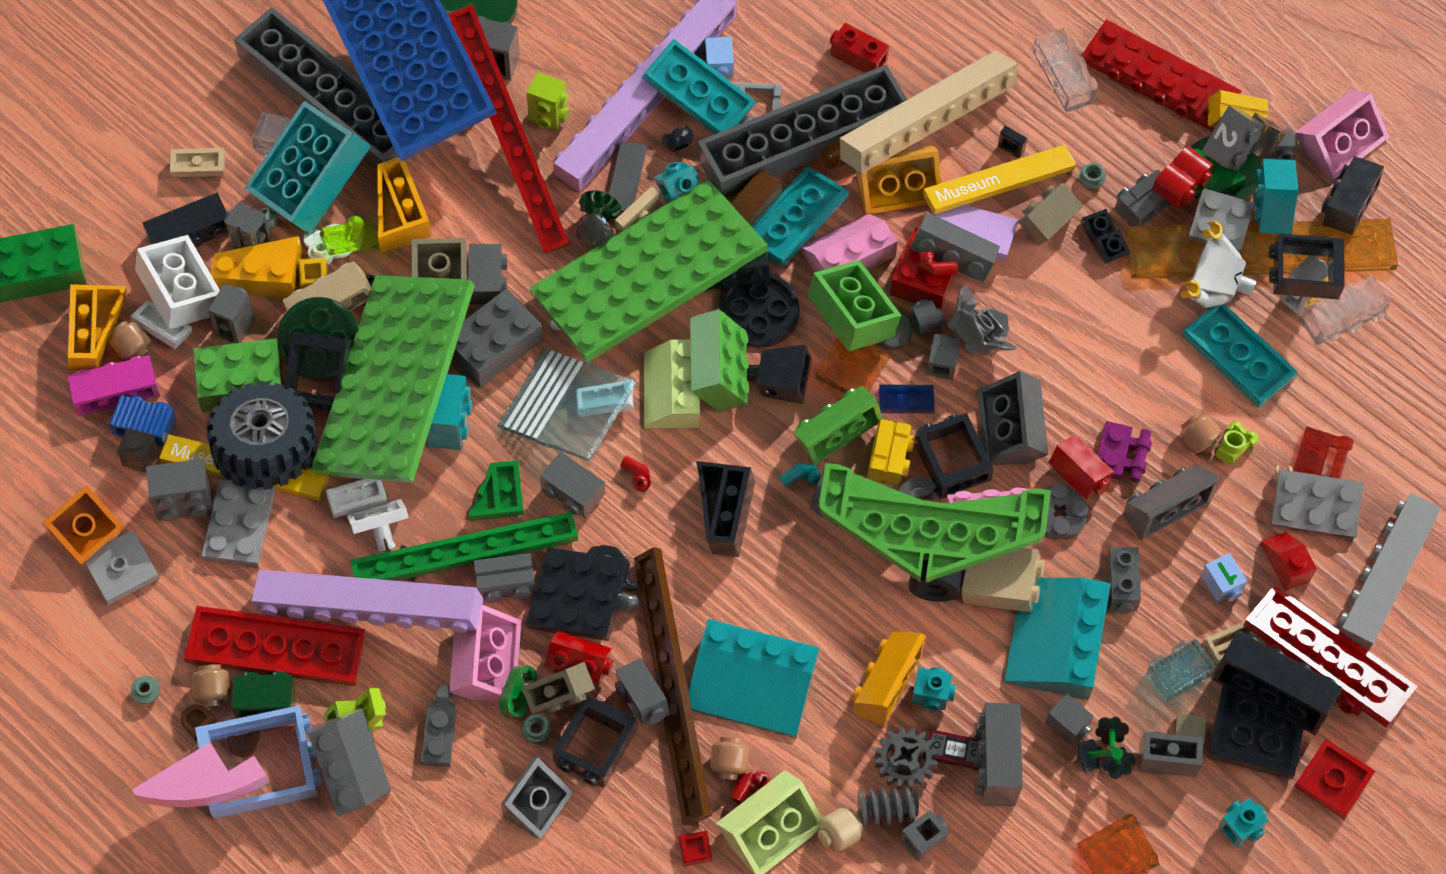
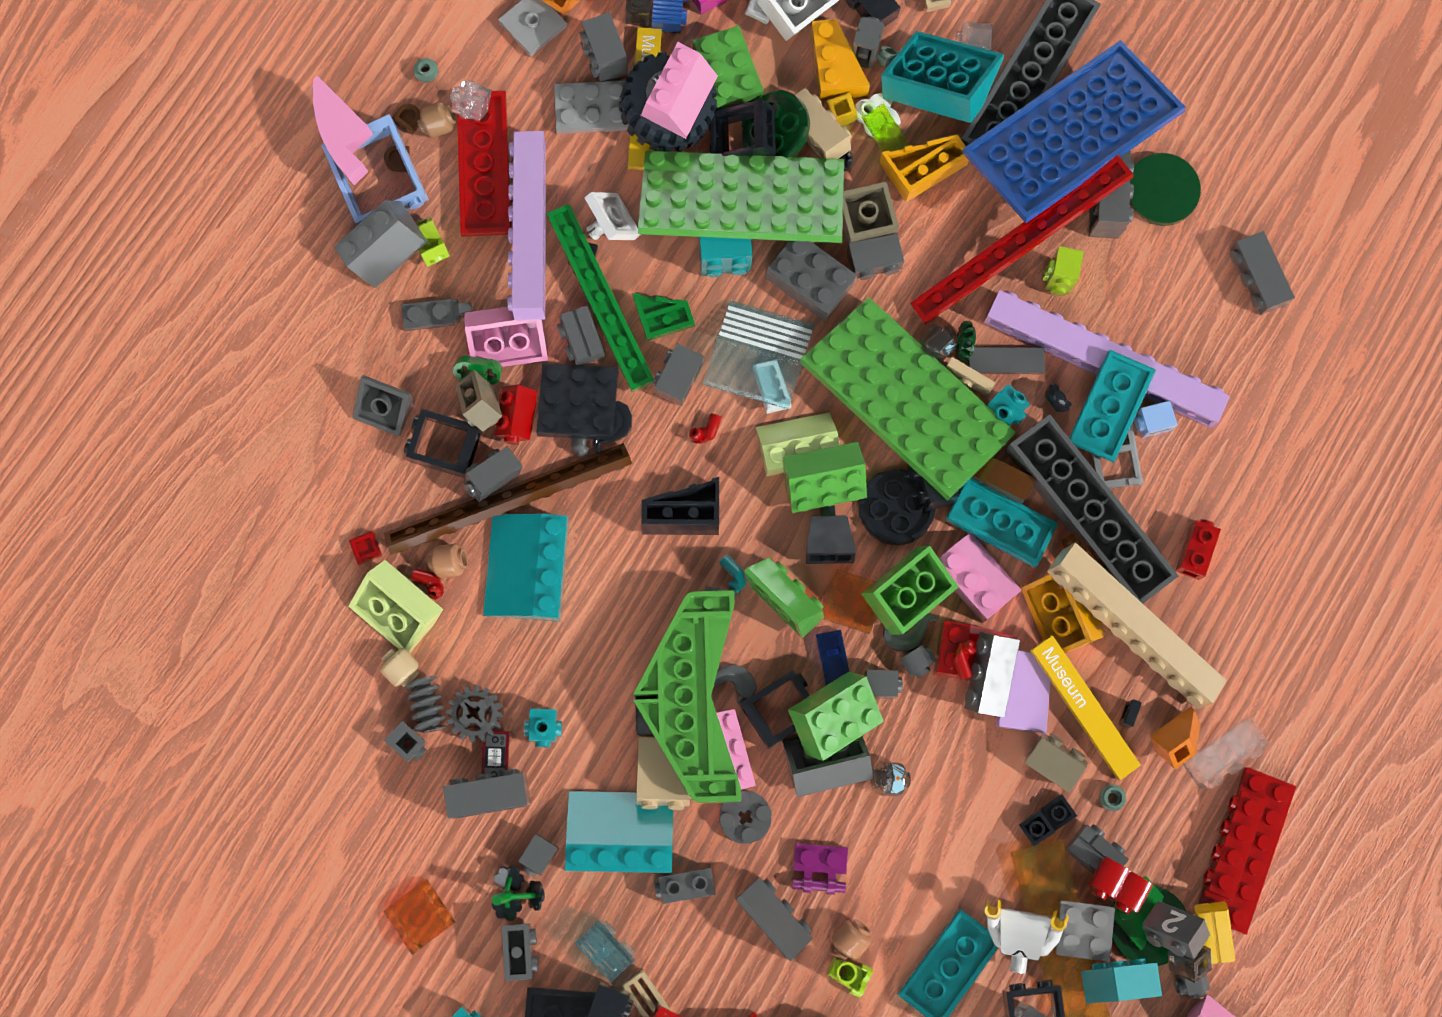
camera: 75 degrees right, 15 degrees up
(203, 636) = (470, 100): none -> clear brick
(231, 314) = (782, 49): dark grey brick -> none
(260, 410) = (680, 91): none -> bright pink slope
(262, 693) = (435, 164): dark green brick -> none
(356, 496) = (629, 189): white plate -> none
(536, 720) = (442, 389): sand green plate -> none
(888, 676) = (546, 684): light orange slope -> none
(889, 452) = (772, 650): yellow brick -> none
(973, 395) = (835, 715): none -> bright green brick
(980, 329) = (915, 713): dark grey brick -> none
(1043, 365) = (890, 779): none -> head
(1046, 106) = (1178, 739): none -> orange slope
(1081, 467) = (789, 830): red brick -> none
(1190, 725) = (551, 968): dark tan tile -> none
(1224, 578) = (704, 981): light blue brick -> none

